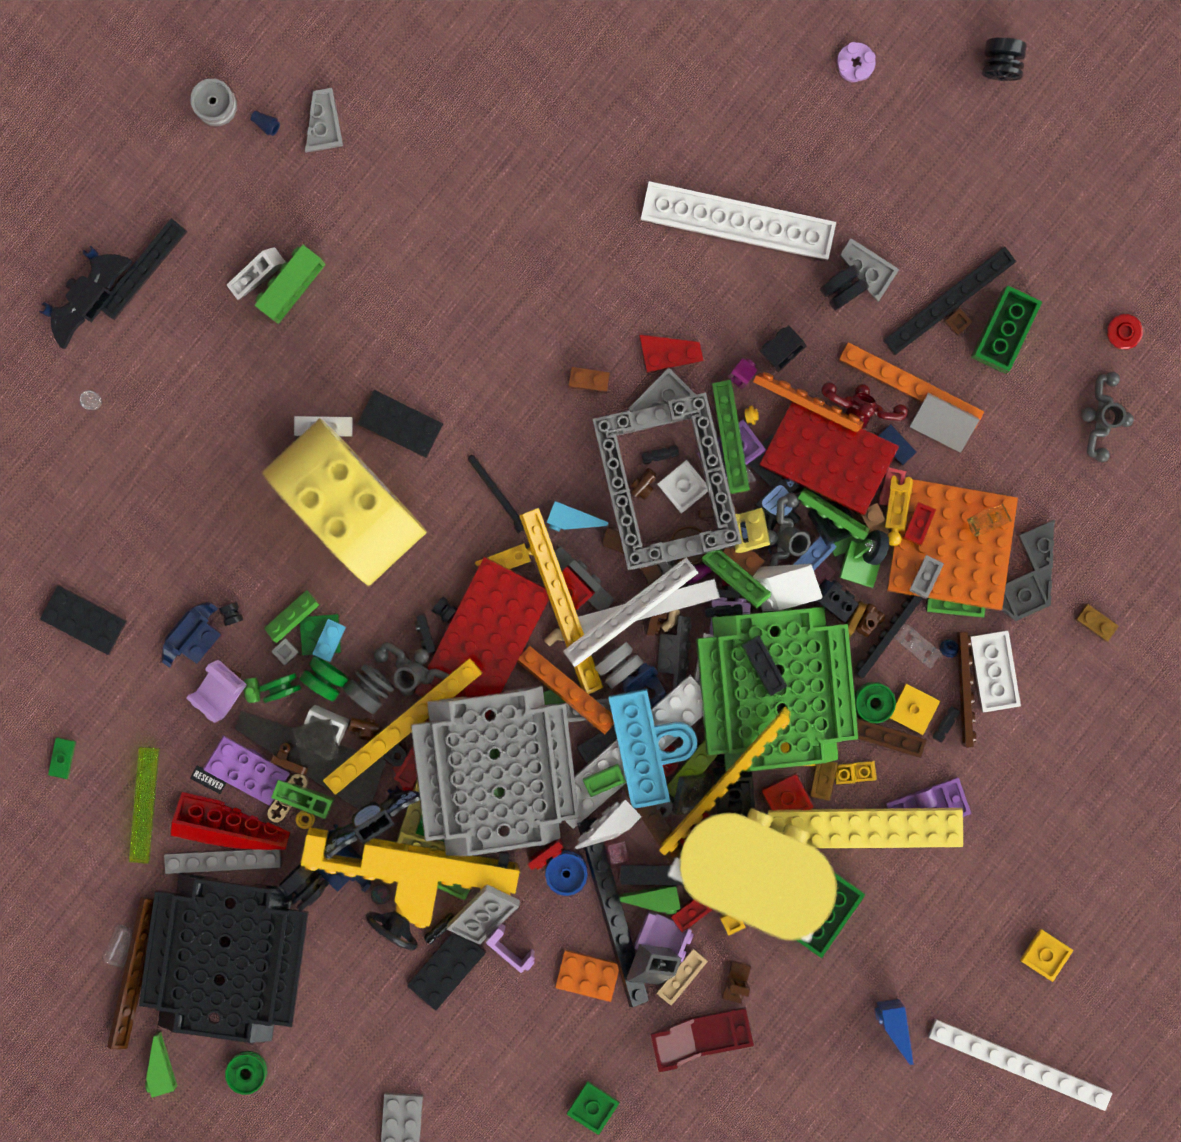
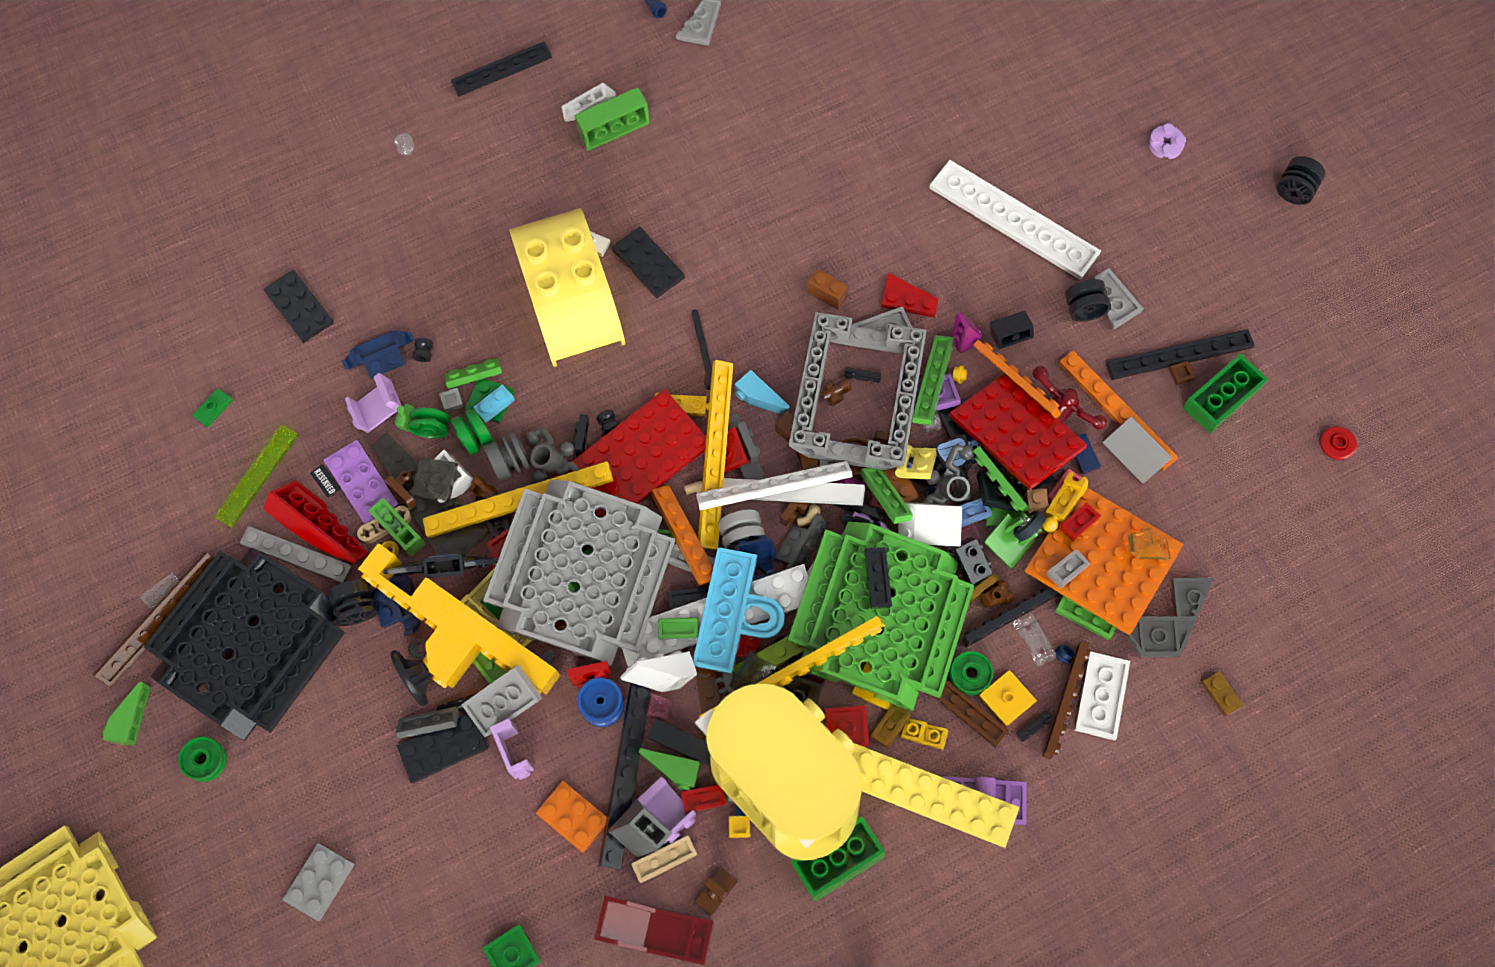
camera: 30 degrees right, 20 degrees down
(85, 295) = (445, 67): black torso -> none
(424, 956) = (427, 722): none -> dark grey plate
(683, 486) = (871, 408): white plate -> none
(1102, 427) = (1291, 510): dark grey wheel -> none

